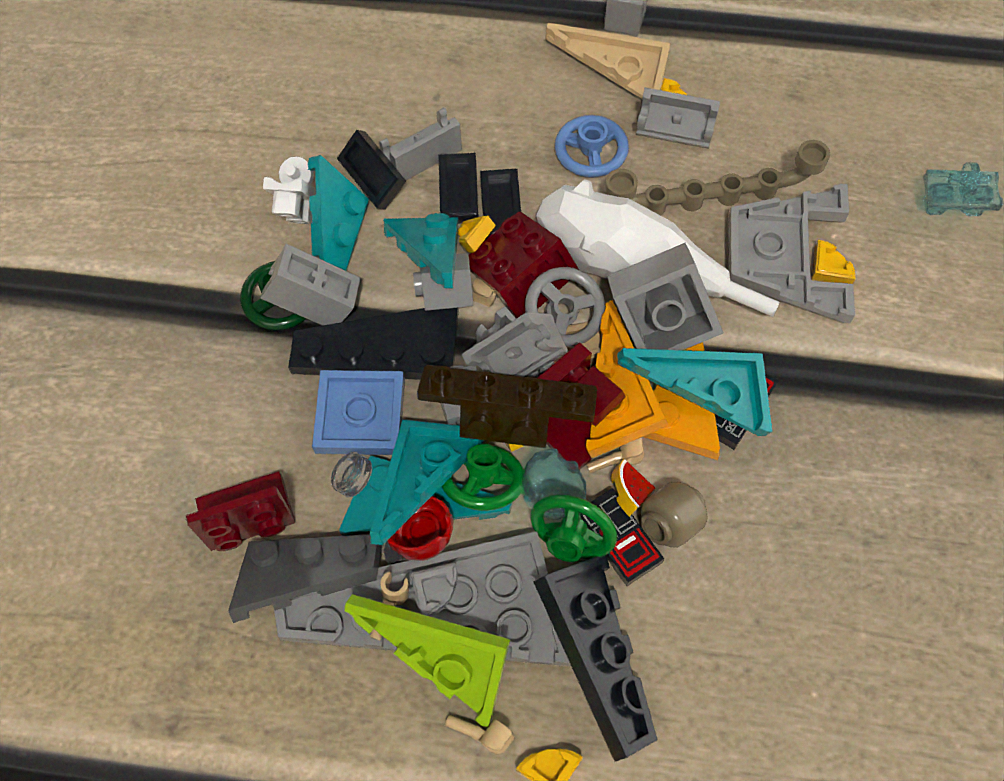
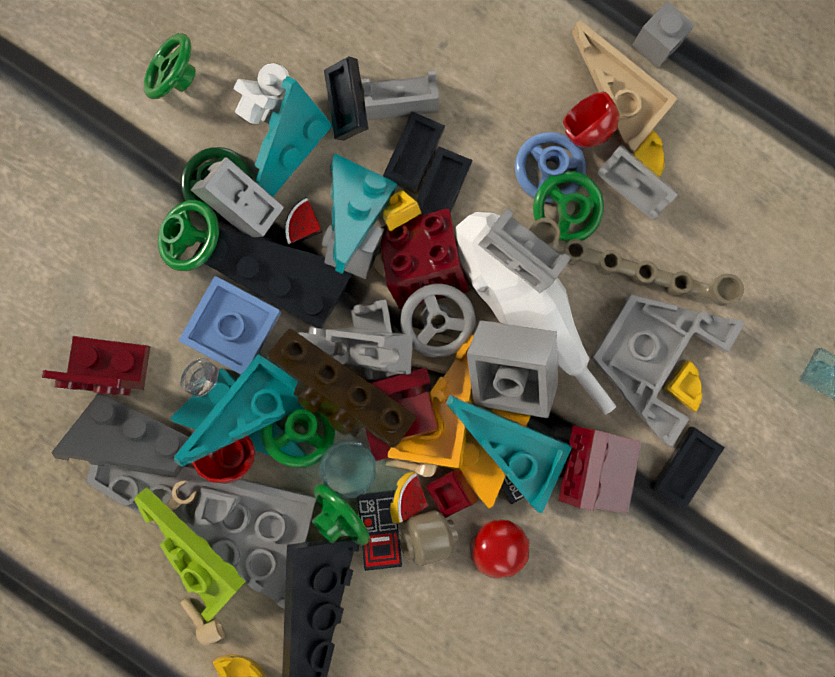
camera: 20 degrees right, 20 degrees up
(191, 213) = (172, 69): none -> green piece
(271, 345) = (180, 234): none -> green piece
(383, 291) = (301, 223): none -> red tile
(607, 89) = (592, 120): none -> red hair
(613, 196) = (523, 252): none -> light grey hinge
(637, 151) = (581, 203): none -> green piece
(671, 459) = (452, 493): none -> dark red tile
(752, 495) = (500, 549): none -> red hair
(800, 365) = (599, 471): none -> bracket
(881, 334) = (687, 467): none -> black tile

